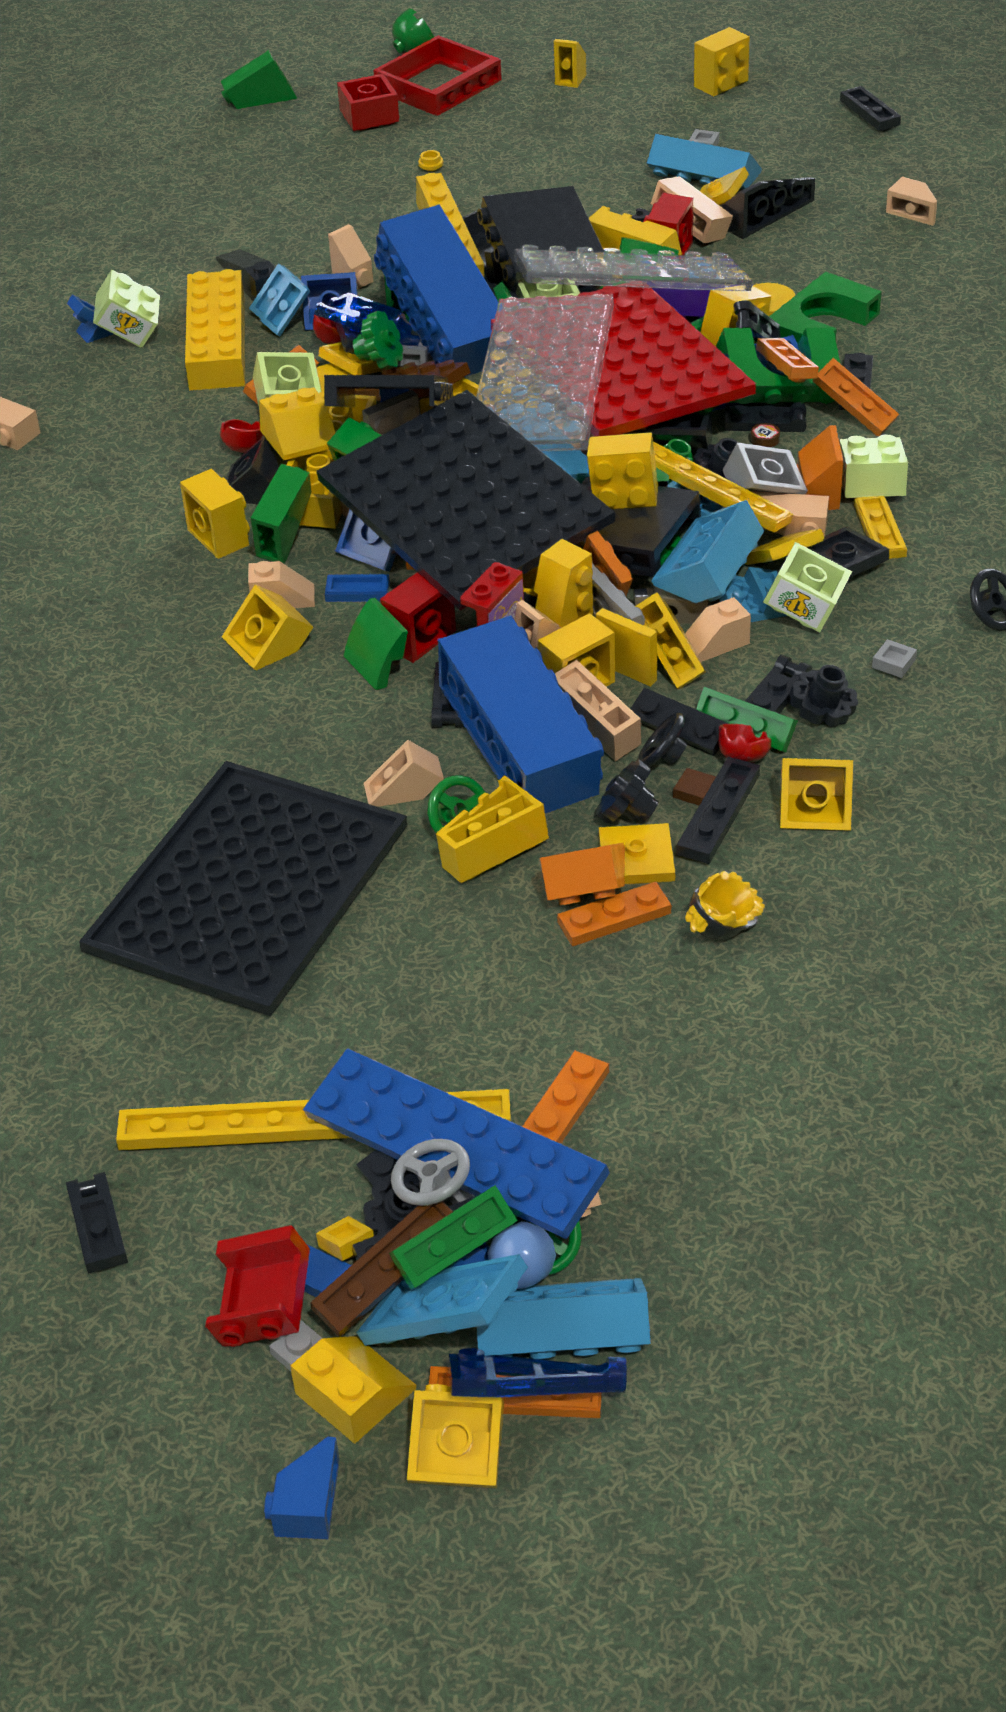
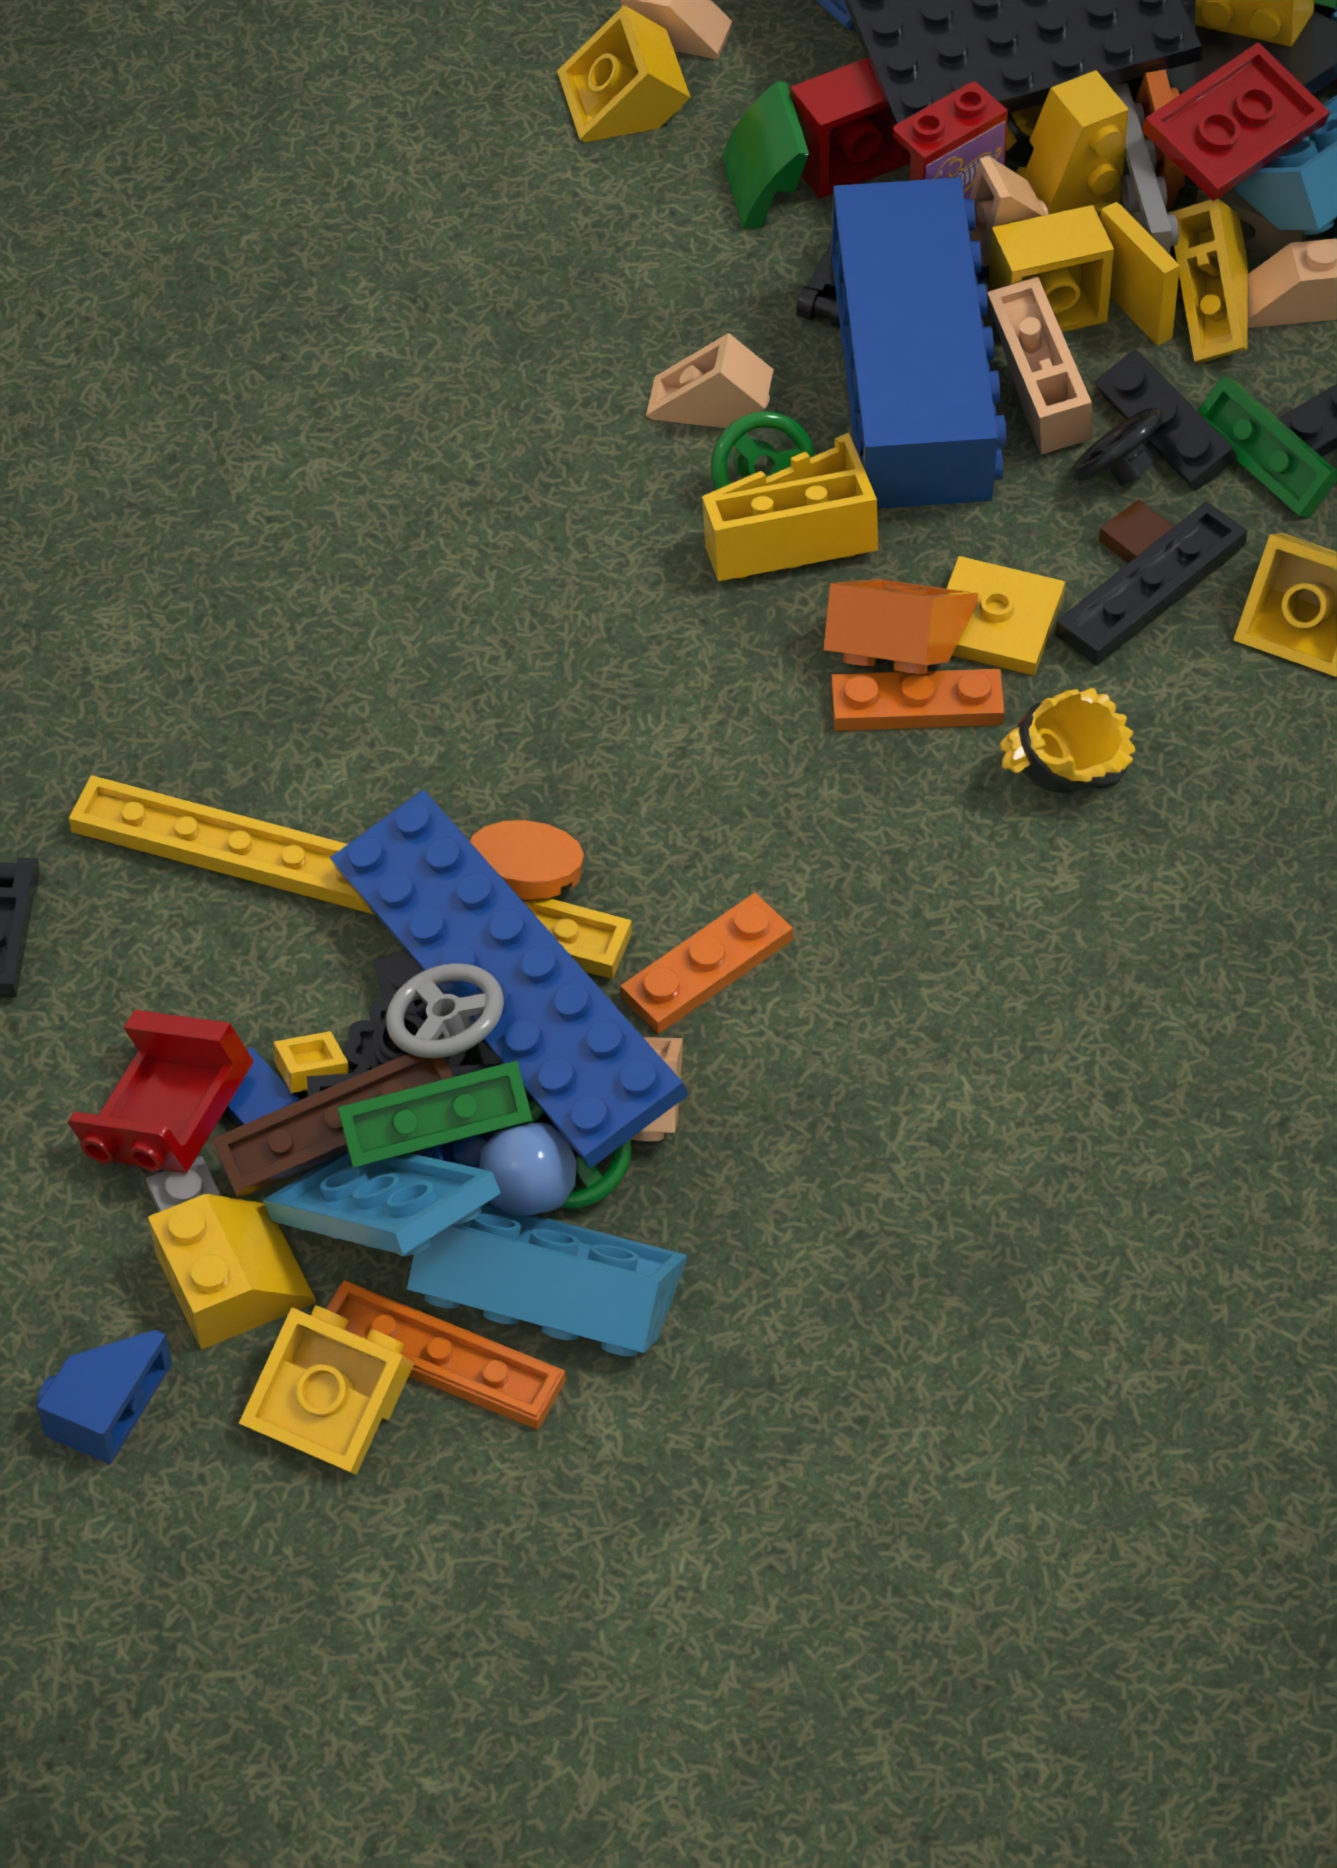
camera: 20 degrees right, 10 degrees up
(245, 887) = (413, 488): black plate -> none
(356, 587) = (792, 46): blue tile -> none
(432, 1068) = (531, 857): none -> orange tile
(475, 1376) = (385, 1308): clear blue plate -> none
(628, 795) = (1022, 520): black plant -> none
(650, 547) = (1235, 121): none -> red plate
(741, 743) = (1239, 485): red hair -> none

